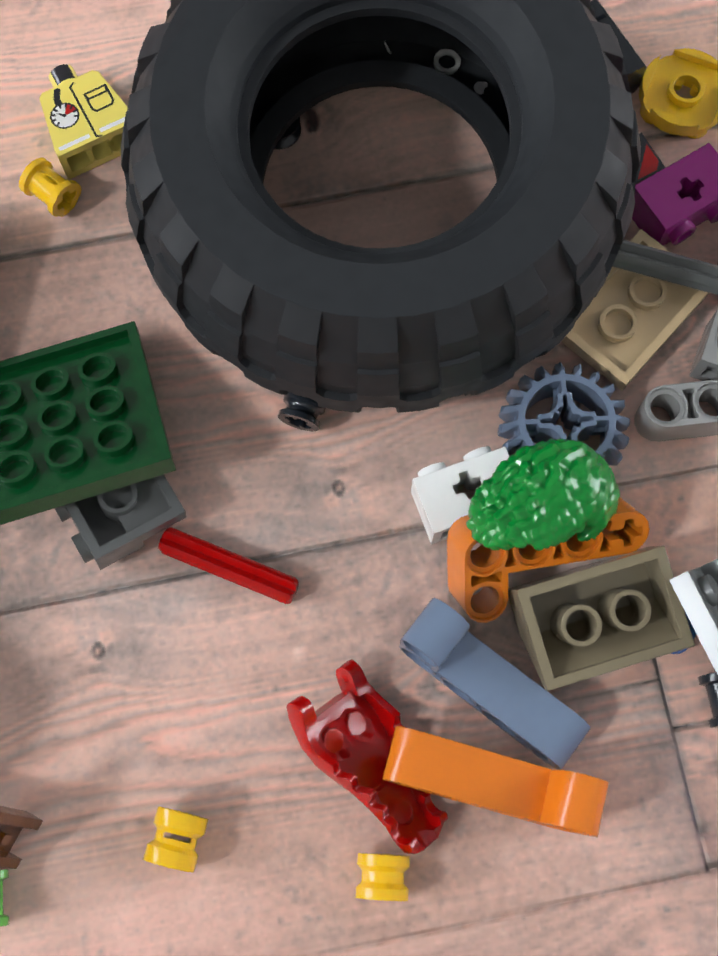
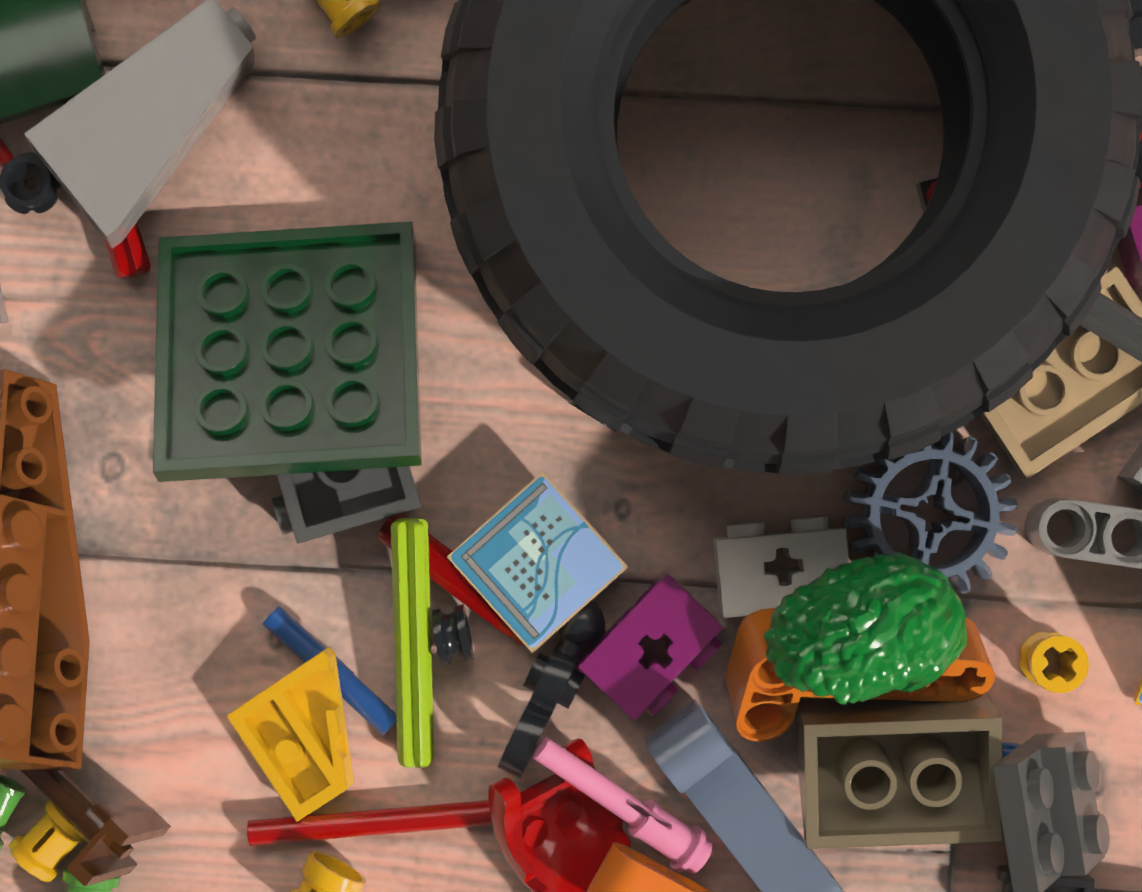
camera: 15 degrees right, 15 degrees up
(130, 713) = (300, 735): none -> yellow wing
(145, 661) = (352, 689): none -> blue piece
(201, 773) = (369, 823): none -> red bar
(202, 619) = (412, 642): none -> lime axle
(232, 606) = (452, 634): none -> black bush
(283, 531) = (537, 562): none -> piece
(317, 622) = (552, 683): none -> black piece
(387, 546) = (616, 661): none -> magenta brick
(420, 709) = (647, 821): none -> bright pink pin
(701, 513) = (1072, 660): none -> yellow bush

